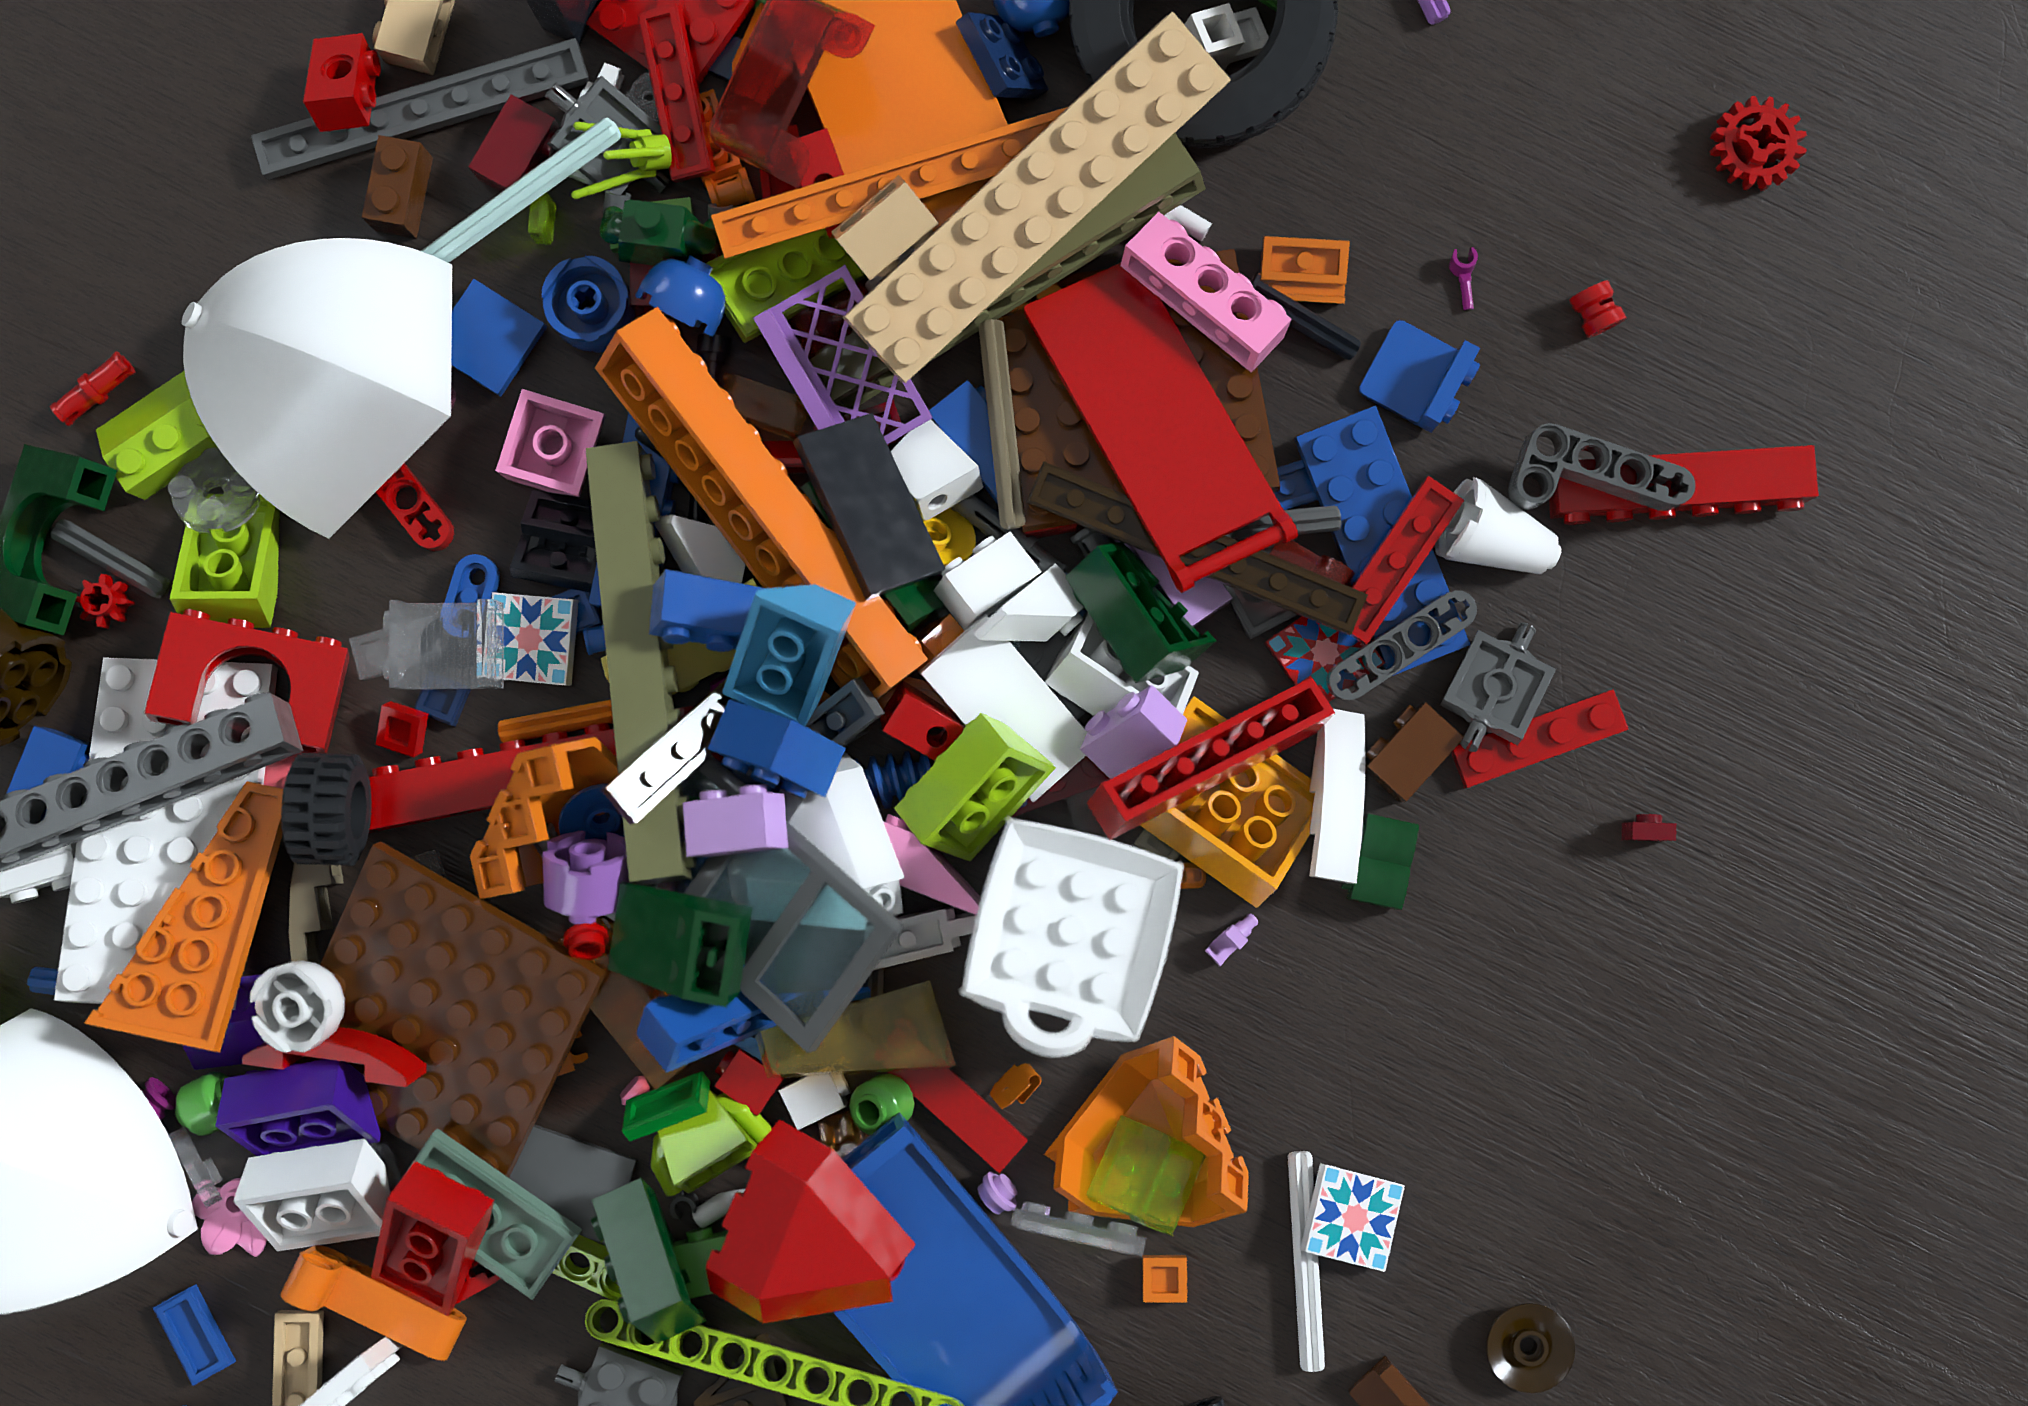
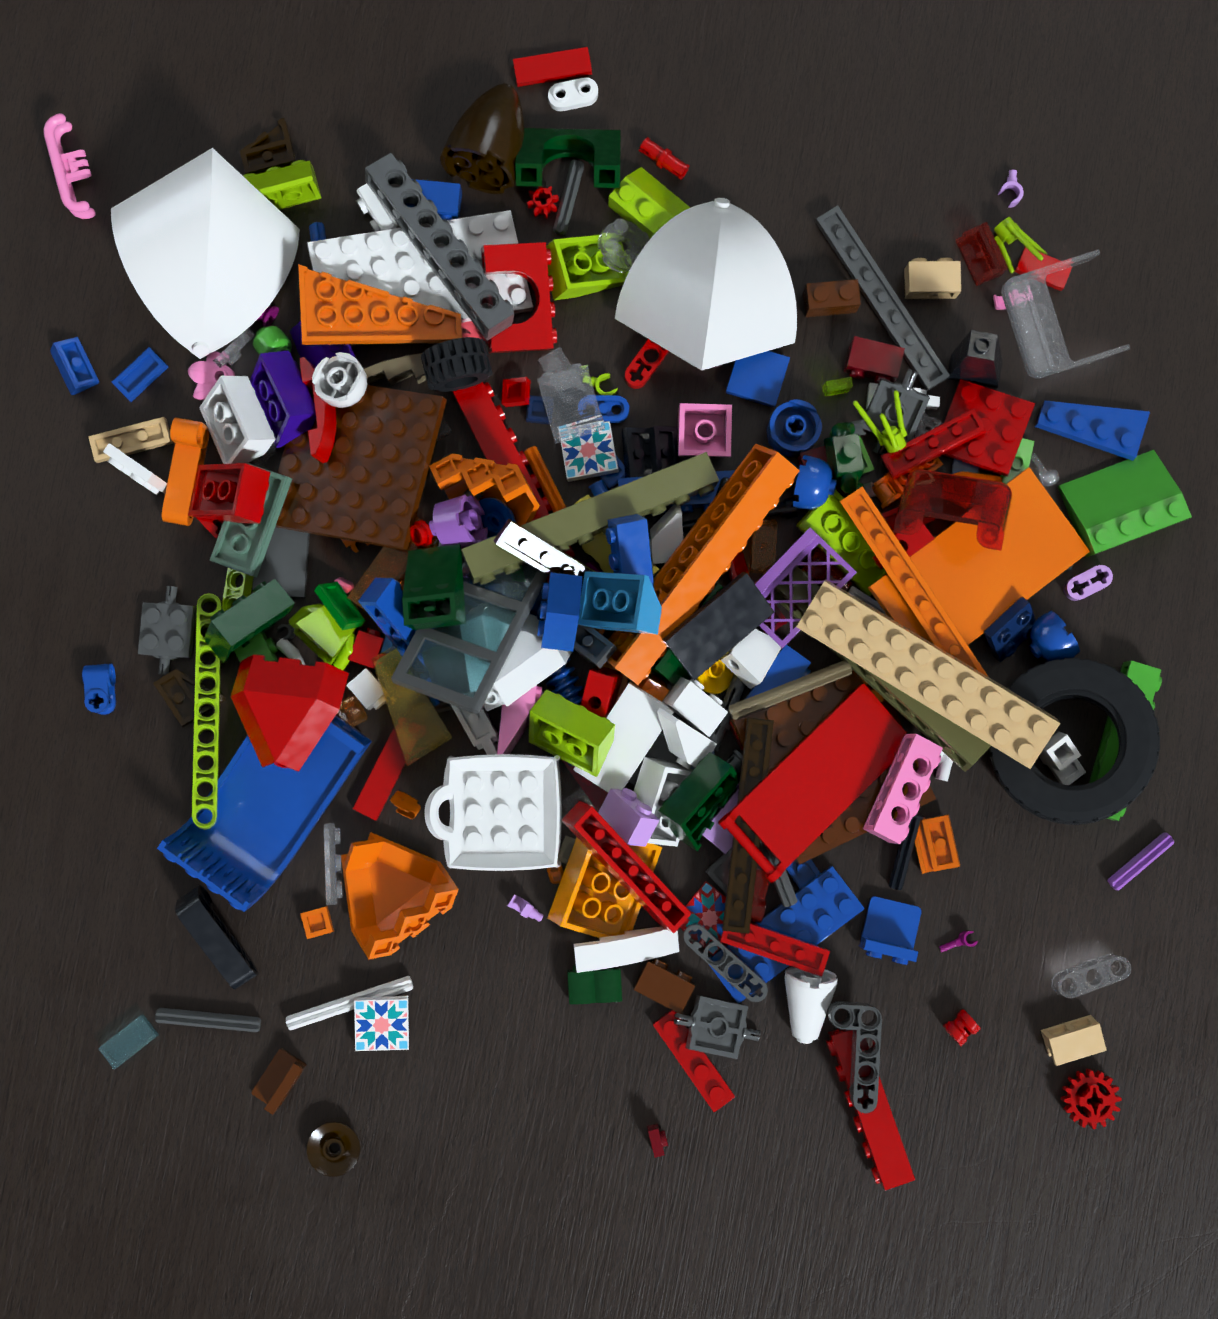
camera: 65 degrees right, 0 degrees up
(341, 82) = (883, 248): red brick -> none
(423, 595) = (596, 382): none -> lime piece
(525, 191) = (849, 373): light aqua axle -> none
(735, 823) = (511, 601): lavender brick -> none
(879, 1101) = (376, 728): bright green head -> none
(885, 229) = (883, 589): tan brick -> none
(998, 1192) = (341, 811): lavender plate -> none
(1146, 1175) = (373, 895): clear neon green slope -> none
(1572, 70) = (1103, 976): none -> clear beam
(1661, 143) = (1073, 1040): none -> tan hinge

